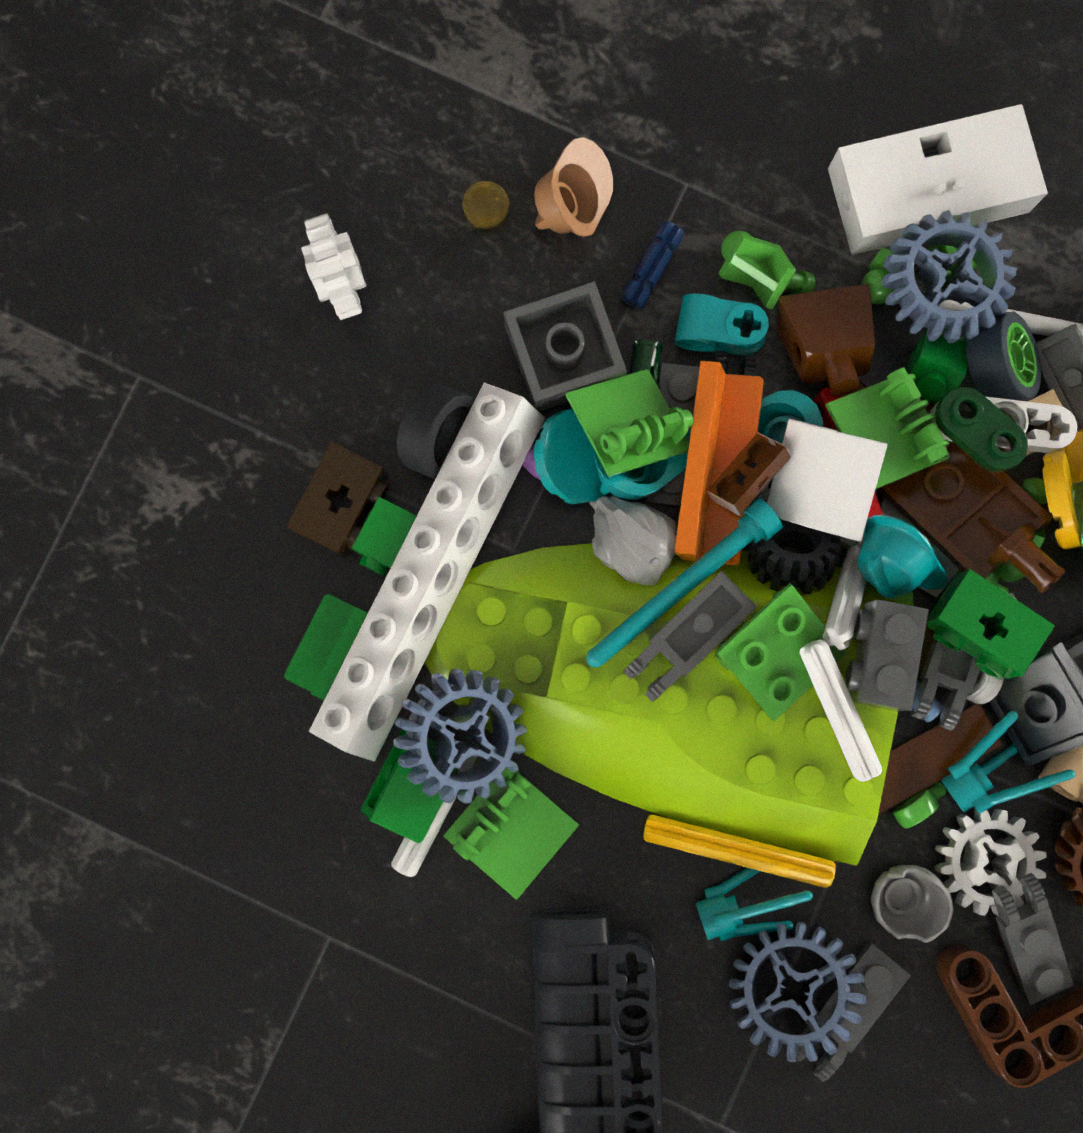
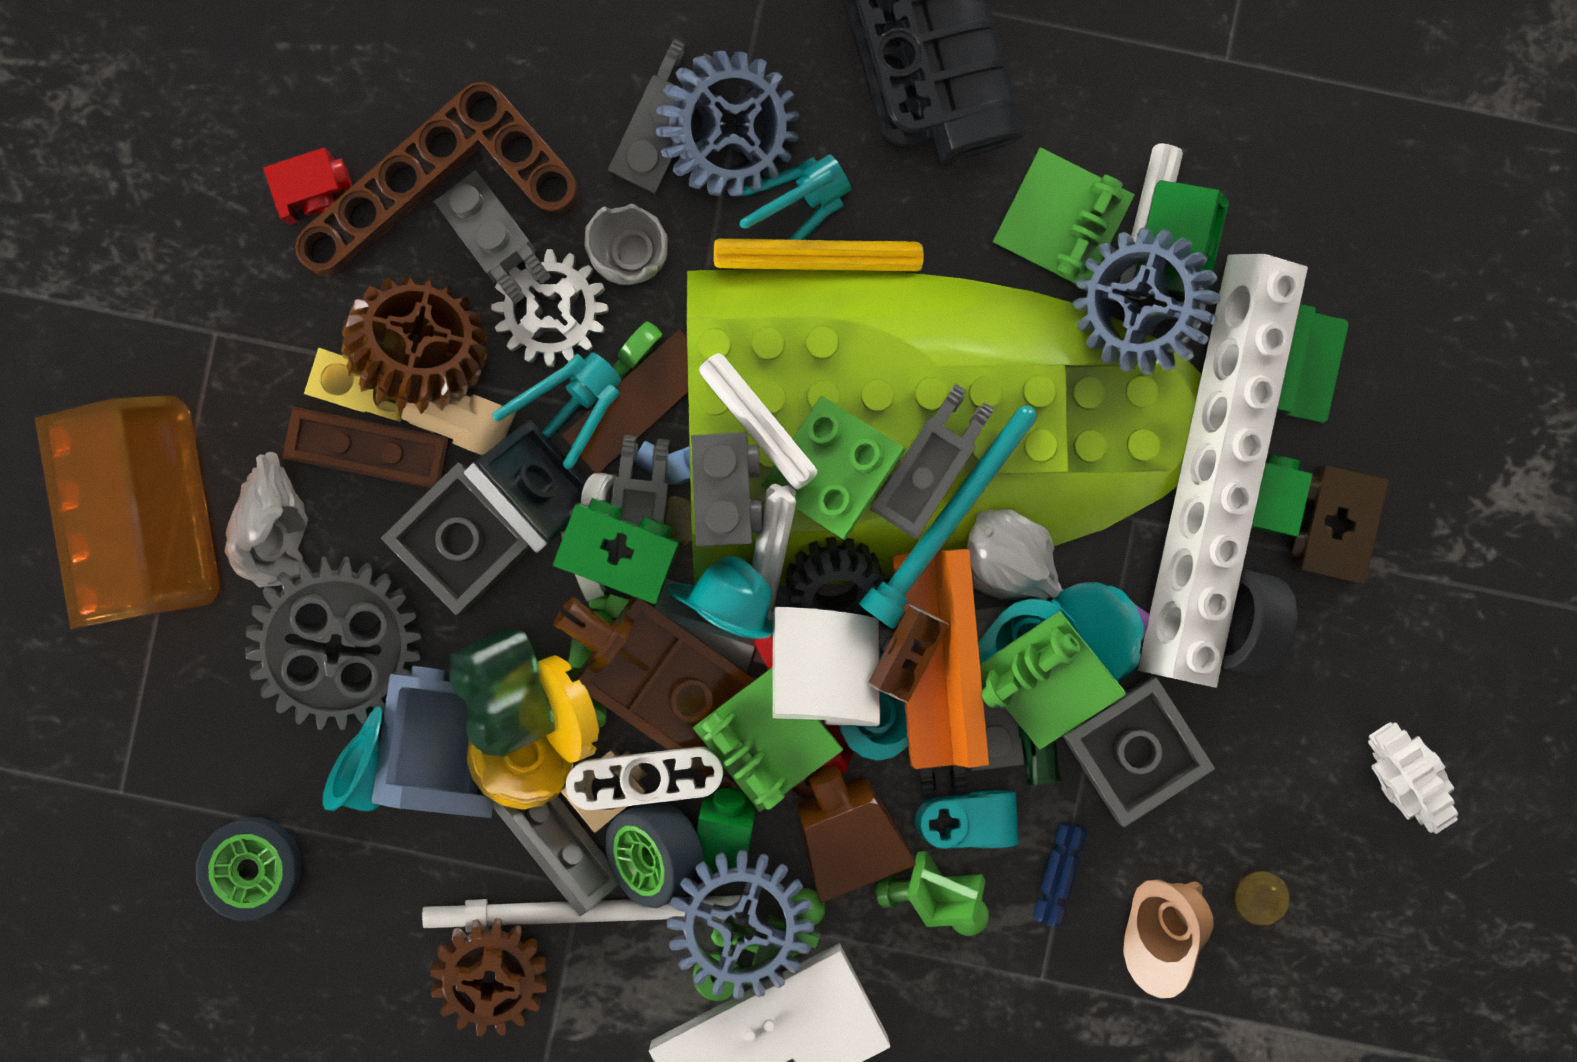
camera: 165 degrees right, 5 degrees up
(980, 433) = (672, 758): dark green plate -> none

